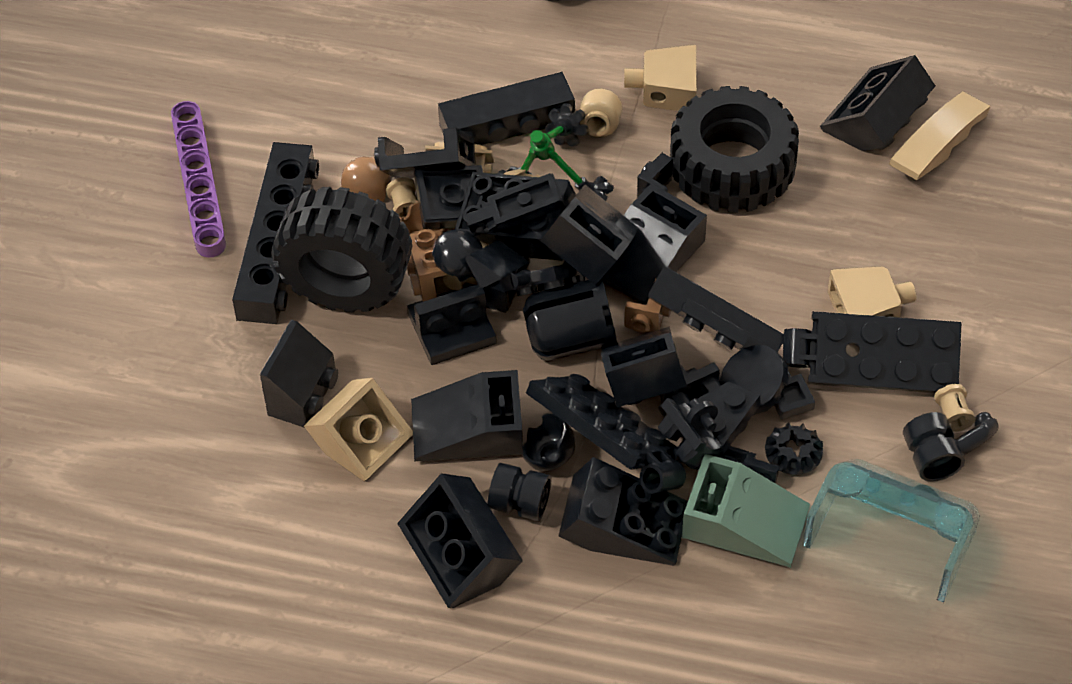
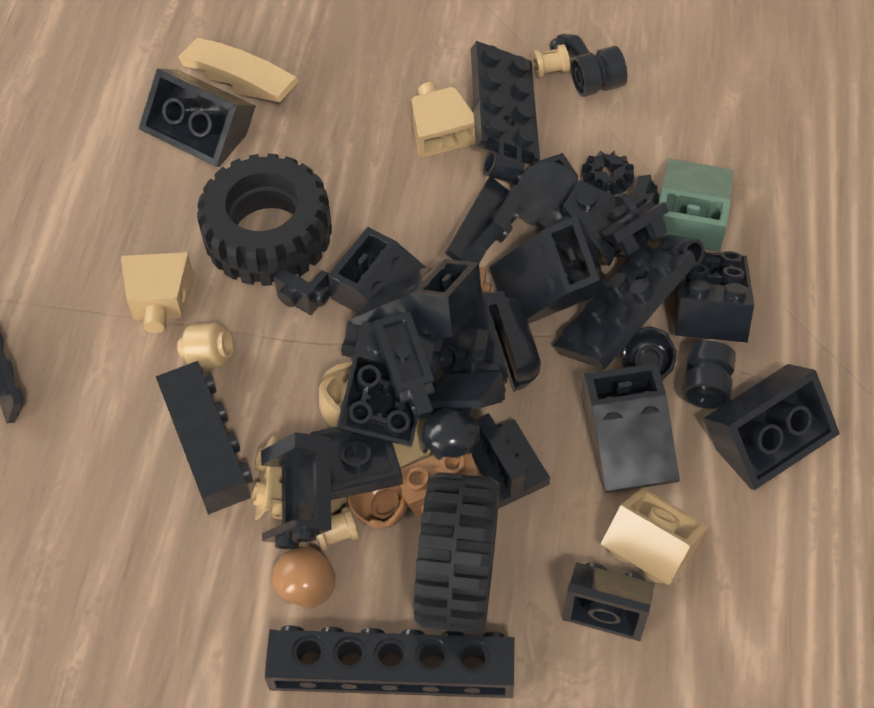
camera: 95 degrees left, 5 degrees up
(564, 128) = (320, 346): plant -> none
(904, 497) = (654, 120): clear light blue windscreen -> none

